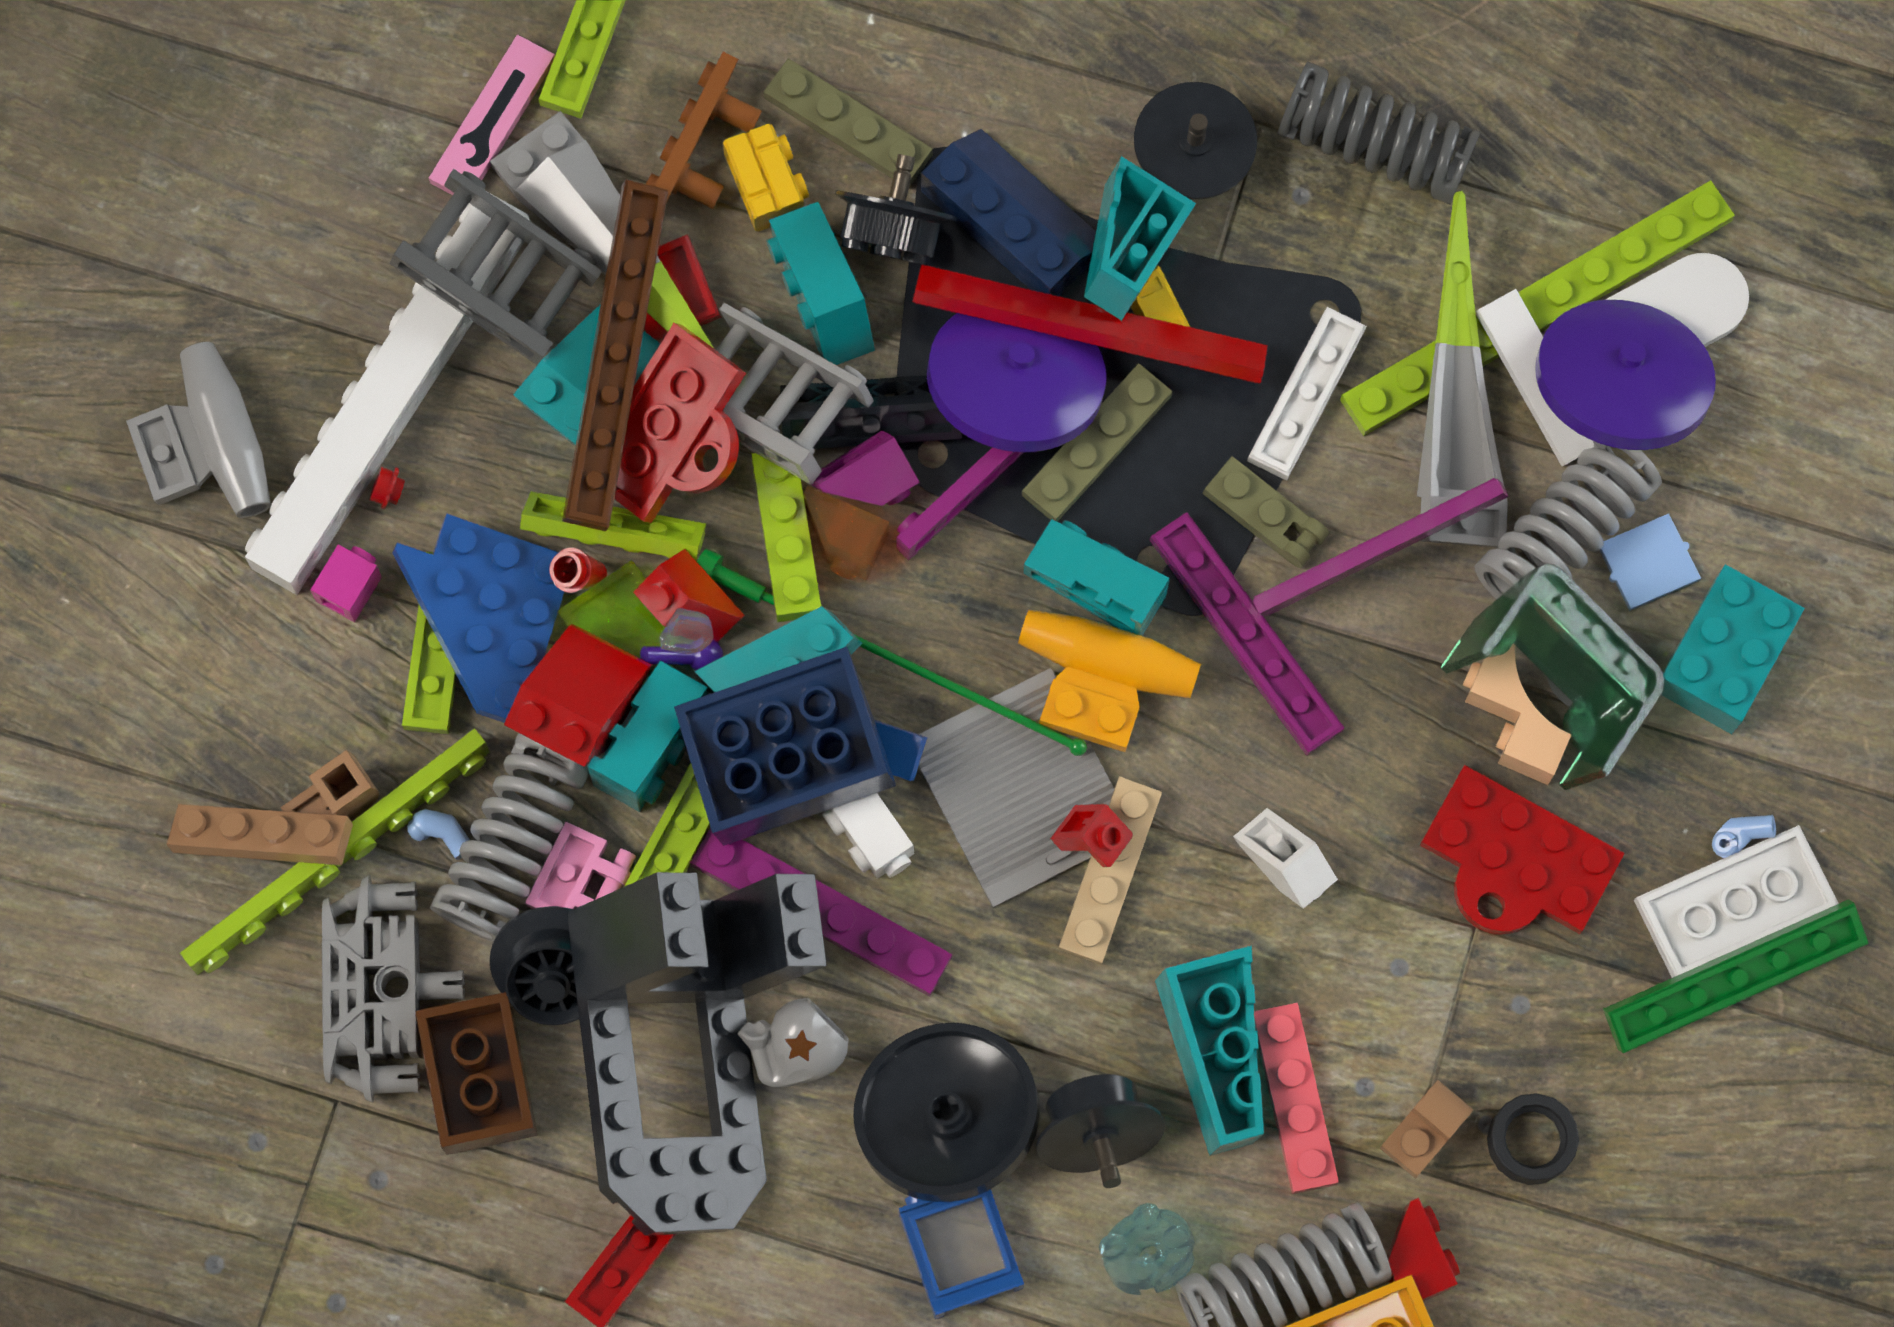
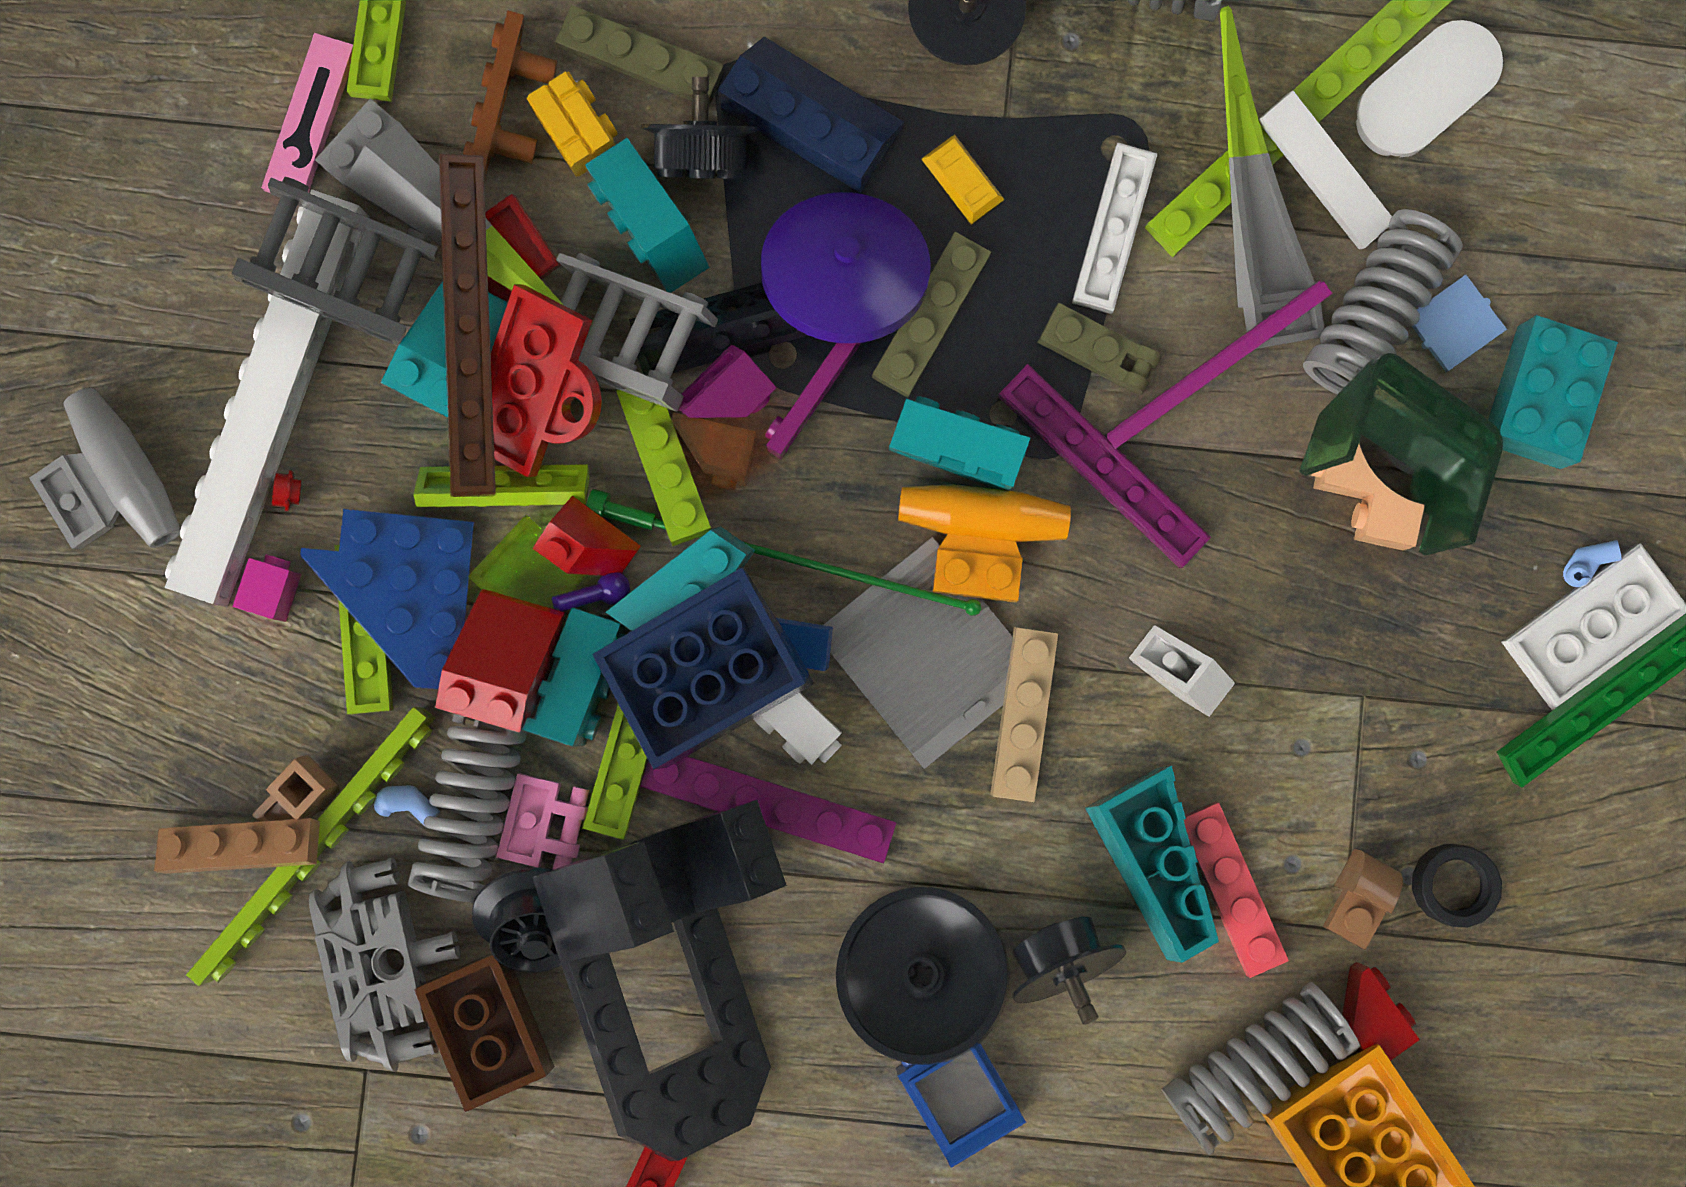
camera: 10 degrees left, 10 degrees up
(575, 570) = (476, 537): red cone -> none
(687, 632) = (591, 575): clear tile -> none
(796, 1046) = (774, 940): light grey piece -> none
(1090, 324) = (904, 204): red tile -> none
(1093, 830) = (1004, 687): red bracket -> none
(1132, 234) = (926, 111): teal wedge -> none
(1138, 1231) = (1135, 1089): clear light blue plate -> none
(1518, 856) = (1391, 624): red plate -> none
(1625, 374) = (1411, 153): dark purple dish -> none

